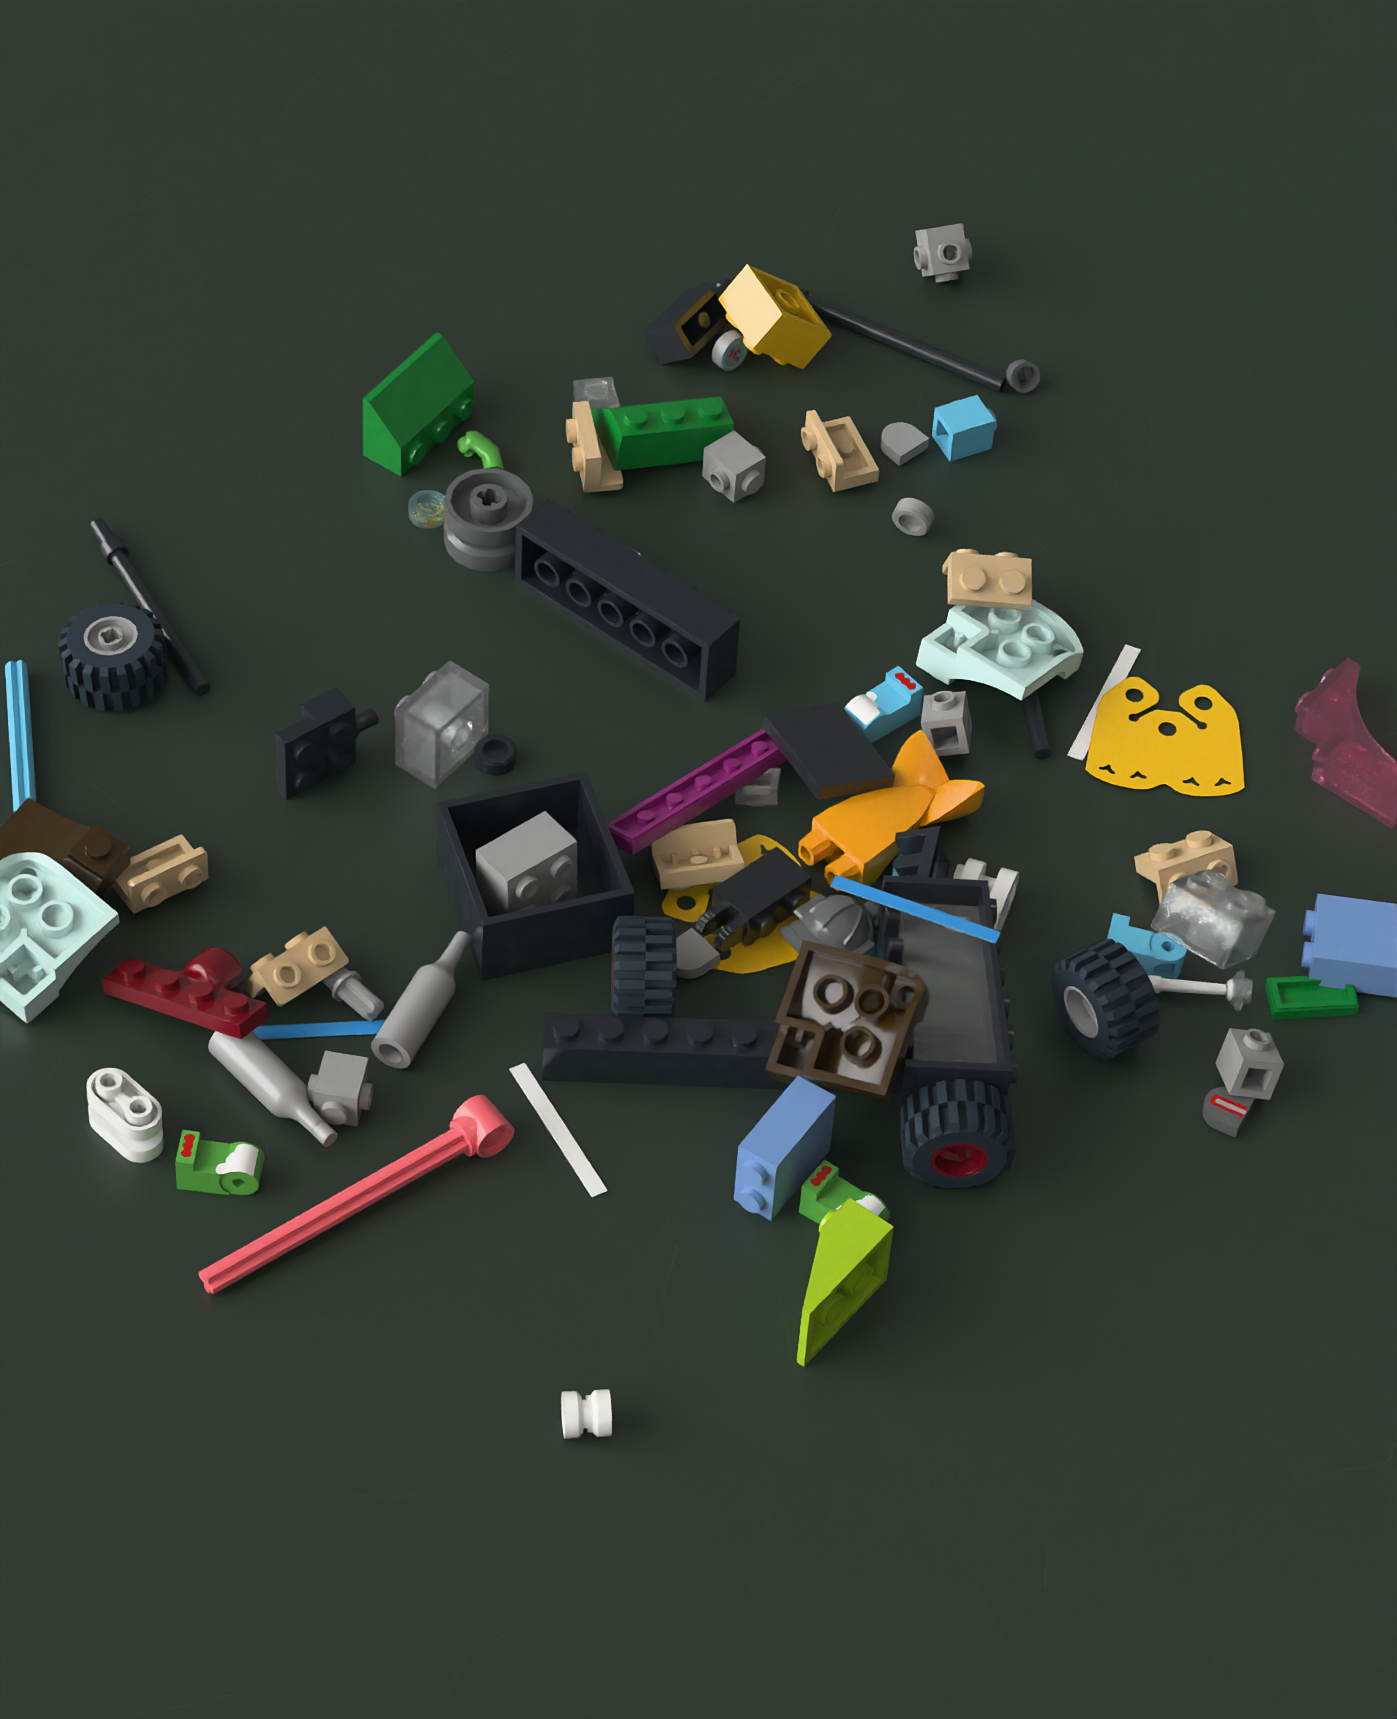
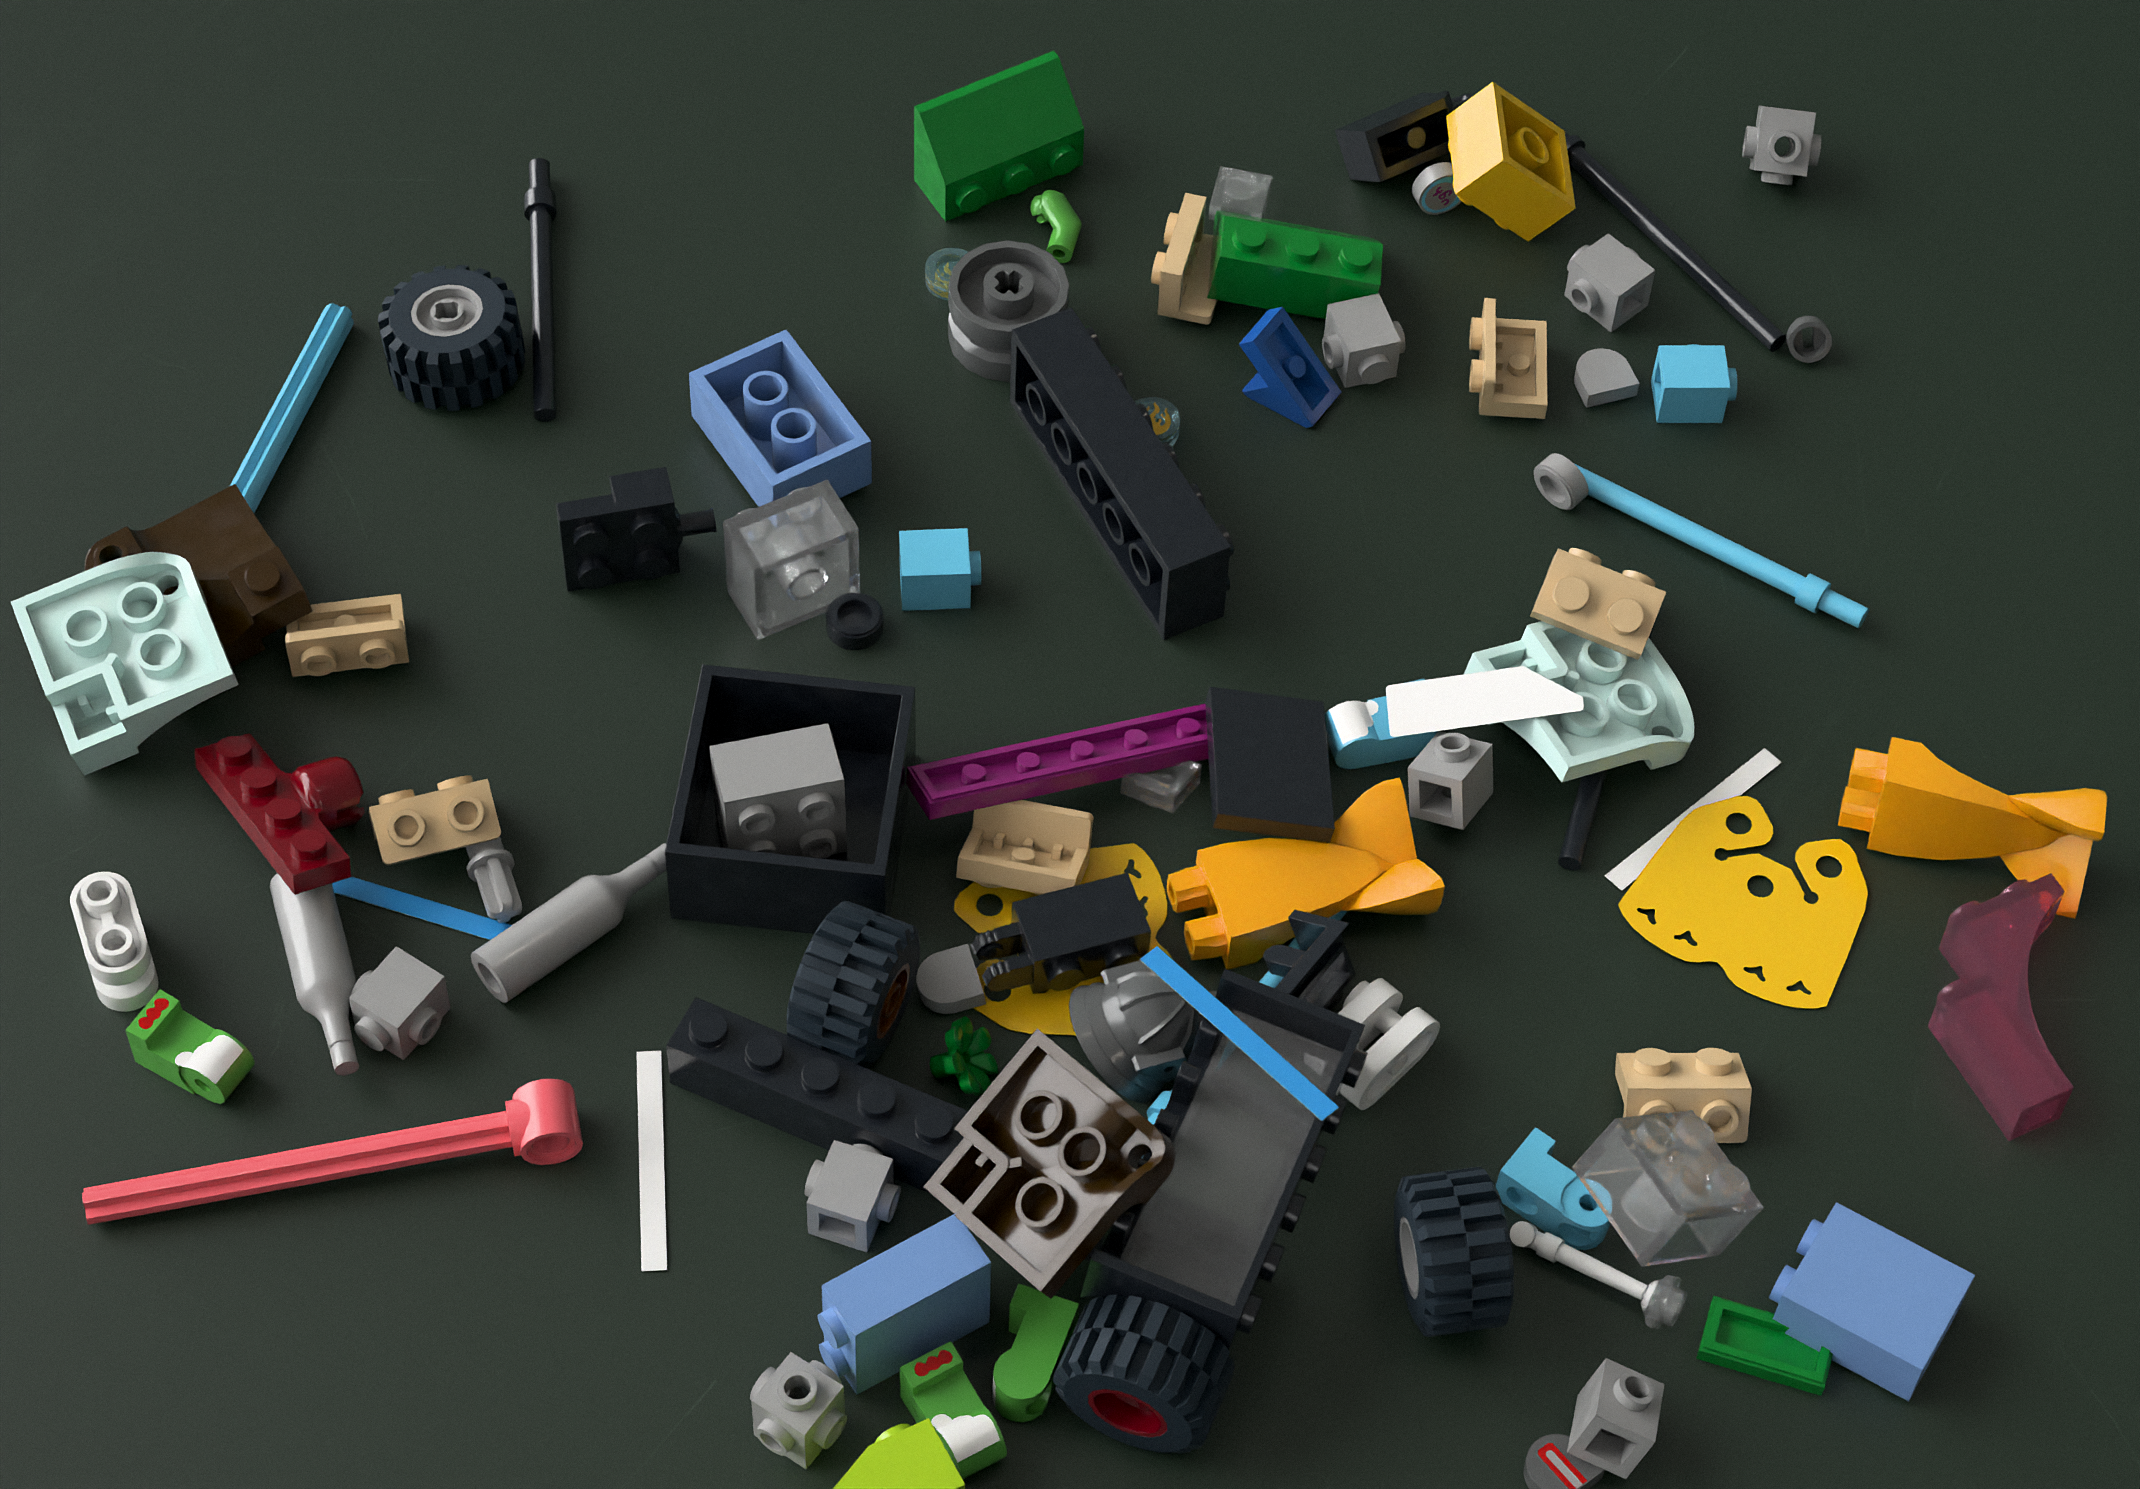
camera: 25 degrees right, 5 degrees up
(377, 641) = (779, 421): none -> medium blue brick
(535, 702) = (937, 569): none -> medium azure brick
(696, 502) = (1289, 372): none -> blue slope
(705, 1102) = (850, 1194): none -> light grey brick
(729, 997) = (966, 1057): none -> green plant
(748, 1236) = (798, 1409): none -> light grey brick
(874, 1141) = (1027, 1370): none -> bright green leg
(875, 378) = (1609, 282): none -> light grey brick
(942, 667) = (1475, 700): none -> white sticker
(1107, 537) = (1808, 591): none -> medium azure bar
(1261, 643) = (1934, 812): none -> light orange hips

